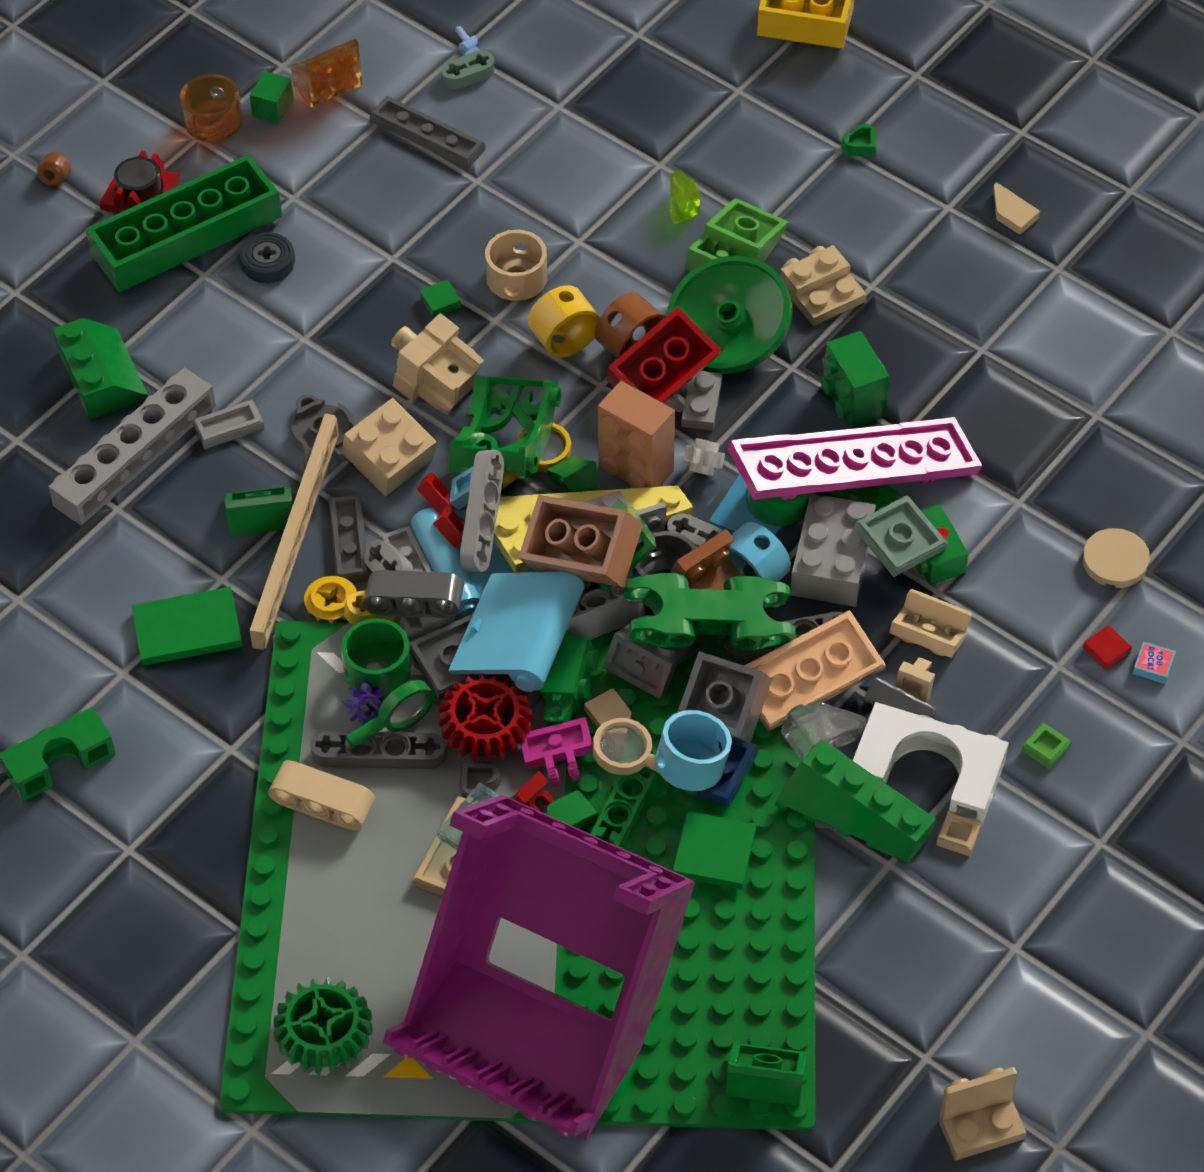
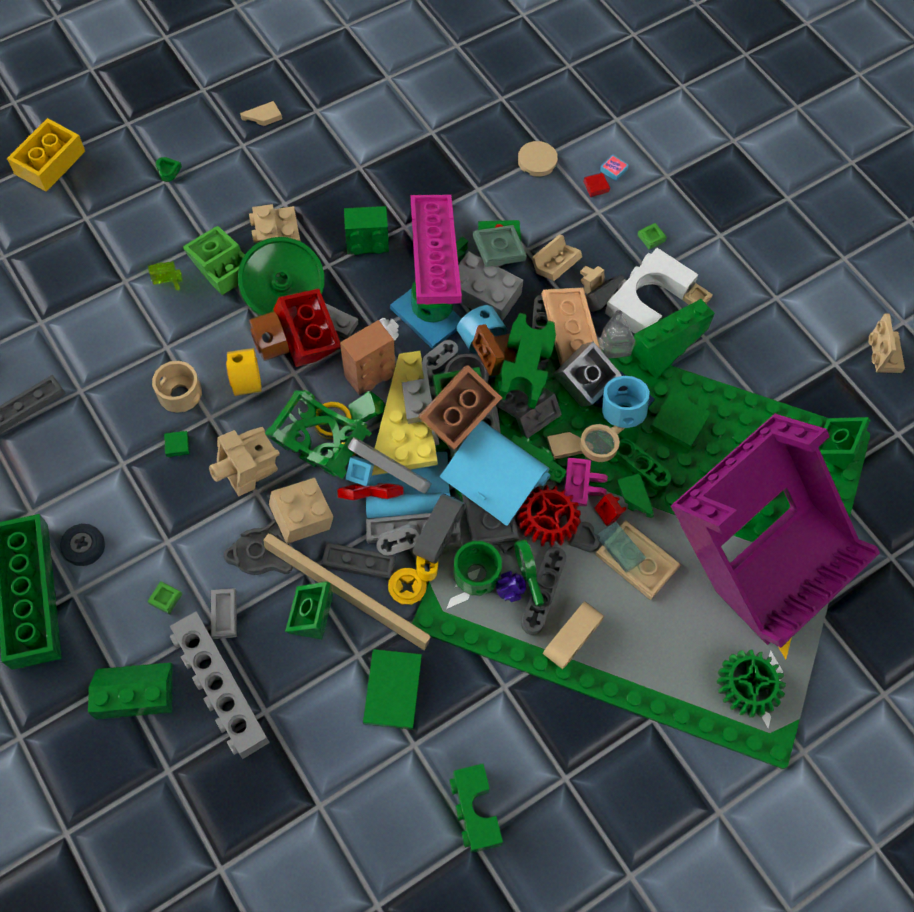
camera: 75 degrees left, 10 degrees up
(228, 360) = (164, 597): none -> bright green tile

